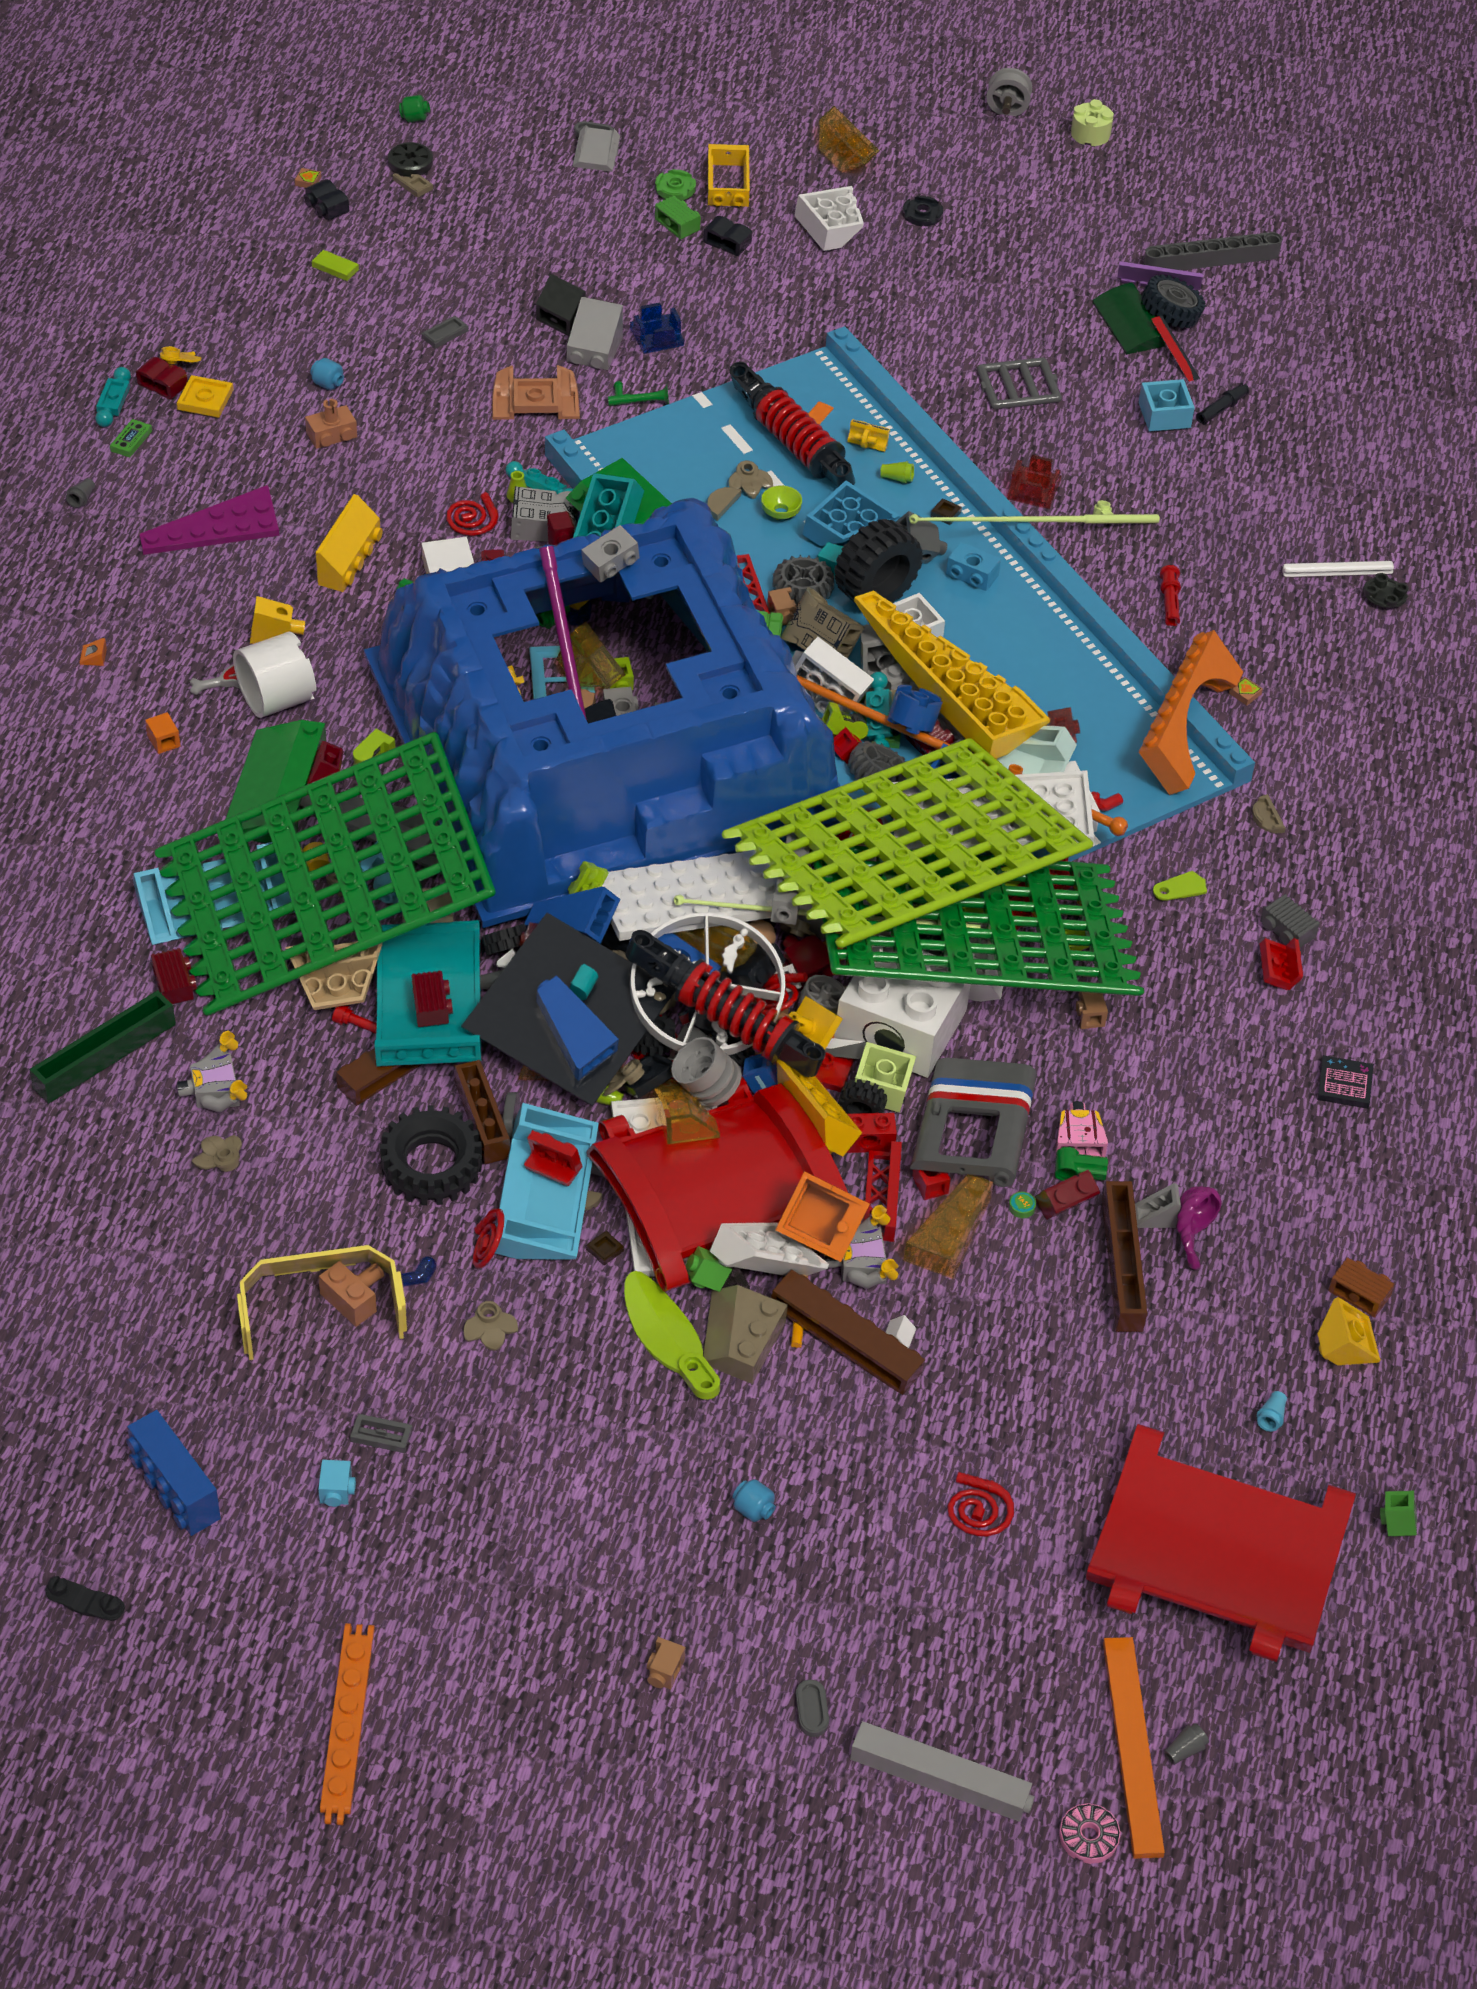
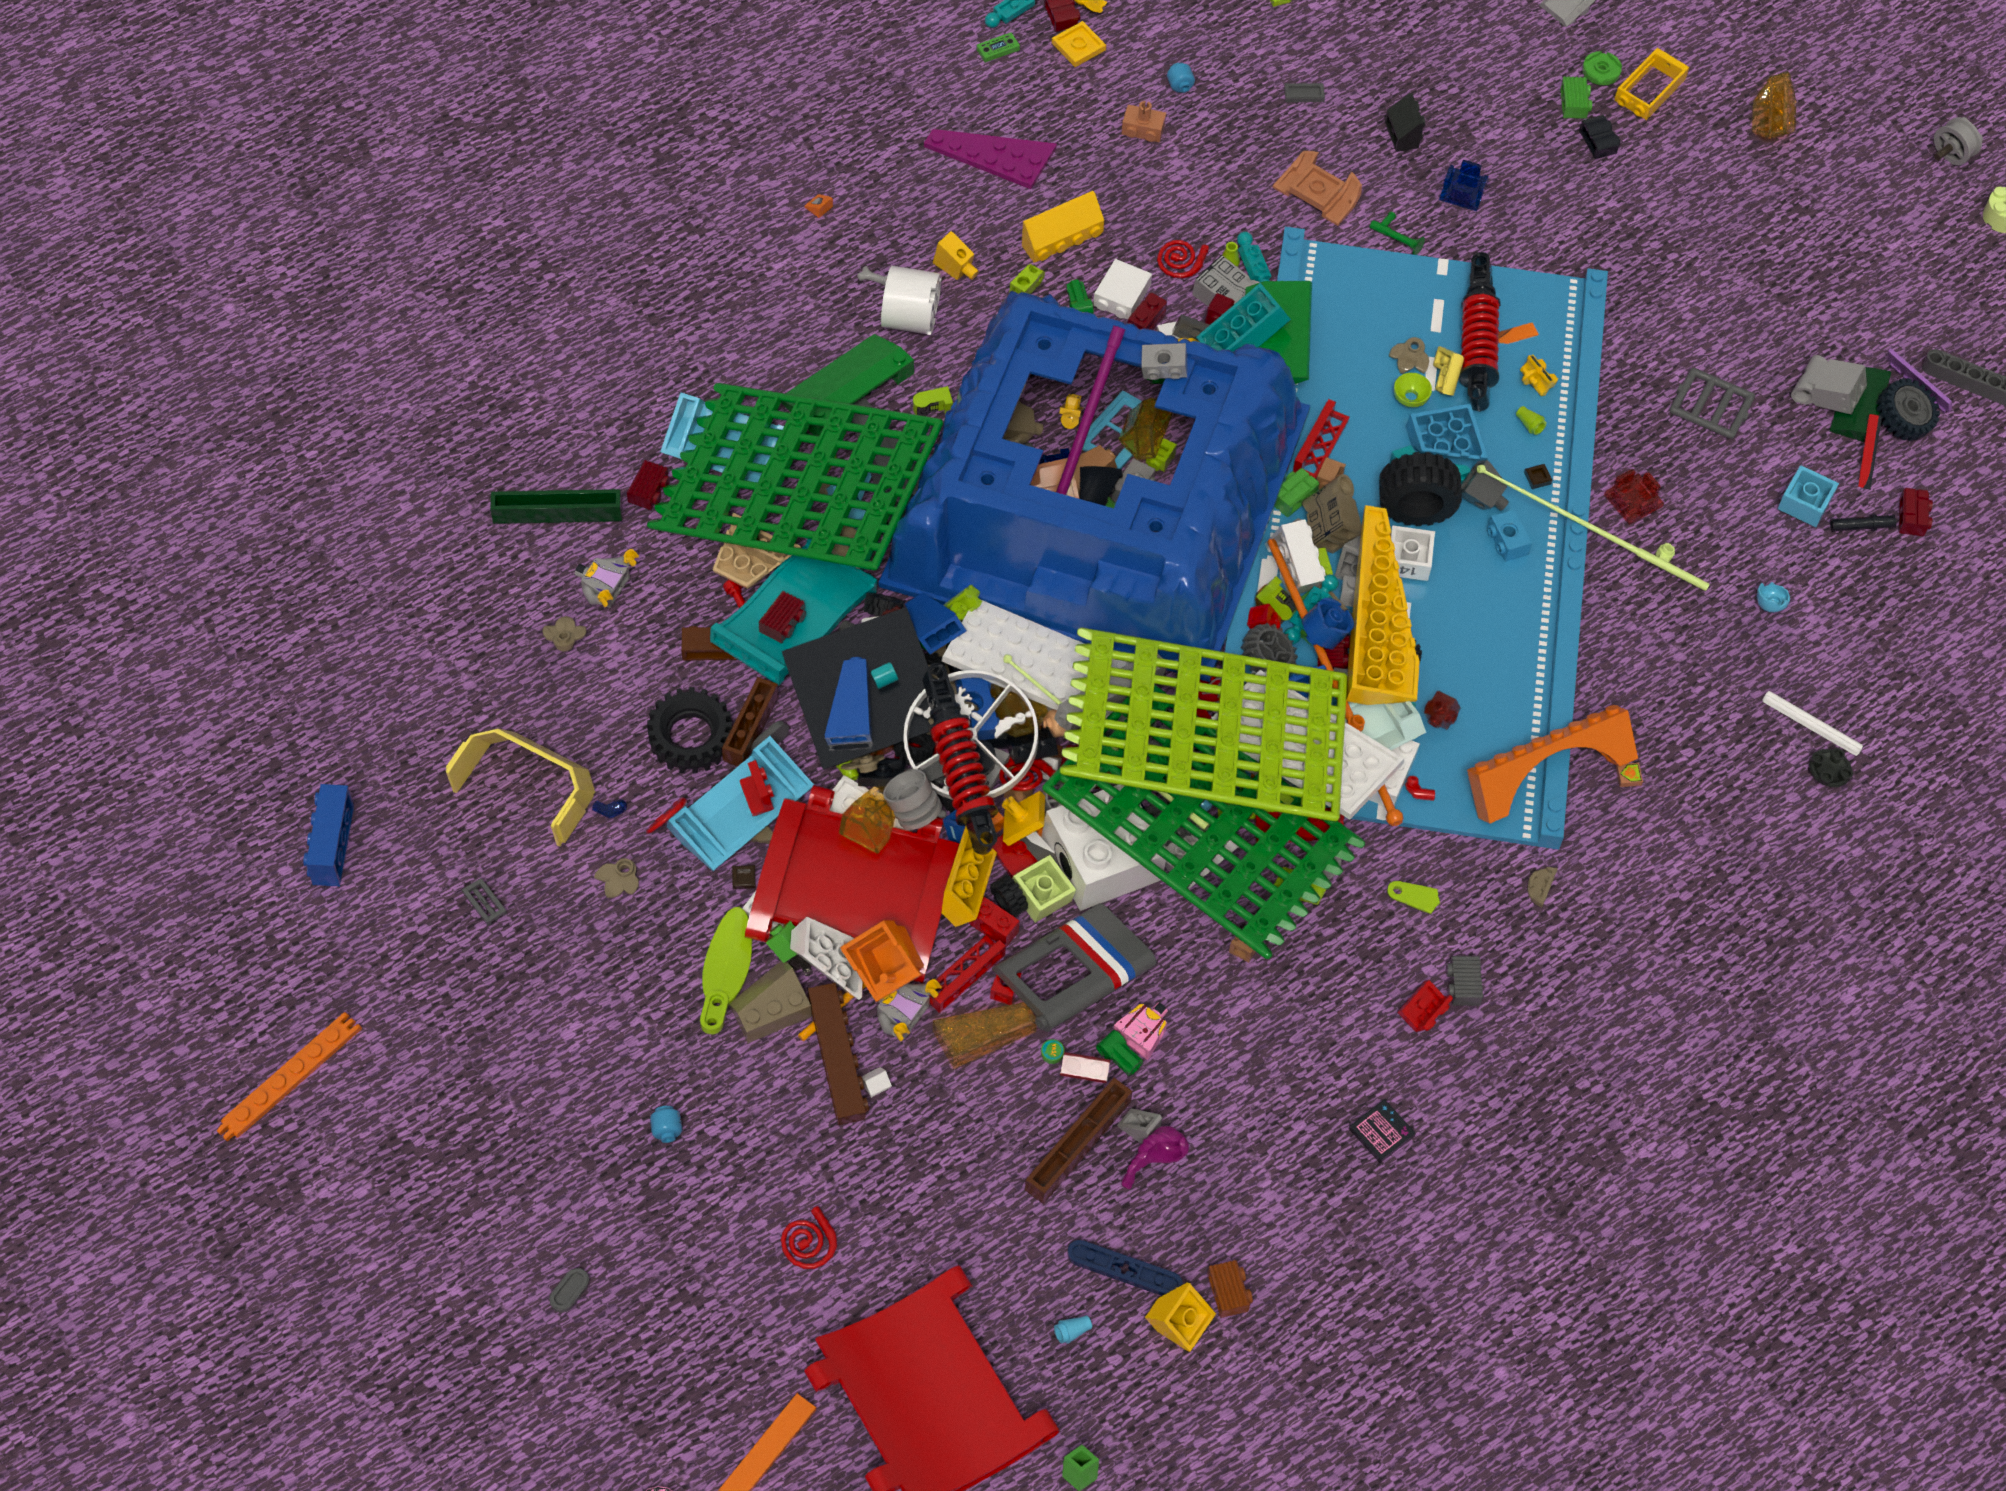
camera: 40 degrees right, 10 degrees up
(80, 493) = (921, 71): dark grey cone -> none
(84, 1600) = (212, 879): black piece -> none
(162, 733) = (806, 296): orange brick -> none
(327, 762) = (886, 392): dark red brick -> none
(336, 1482) = (423, 914): medium azure brick -> none
(351, 1292) = (550, 789): nougat brick -> none
(357, 610) = (1027, 280): none -> lime leg
(595, 333) = (1408, 163): light grey slope -> none
(665, 1663) = (504, 1190): medium nougat brick -> none
(722, 500) = (1372, 360): dark tan tile -> none
(798, 464) = (1450, 368): none -> light yellow brick
(804, 573) = (1364, 463): dark grey gear -> none
(829, 216) = (1697, 167): white wedge -> none
(933, 212) = (1781, 214): black tile -> none
(942, 1771) = (603, 1397): light grey brick -> none
(1097, 315) = (1831, 384): none -> light grey piece
(1170, 588) = (1654, 652): red pin -> none
(1216, 495) = (1772, 597): none -> medium azure hair
(1253, 372) = (1914, 512): none -> dark red brick
(1281, 1328) = (1102, 1260): none -> dark blue piece

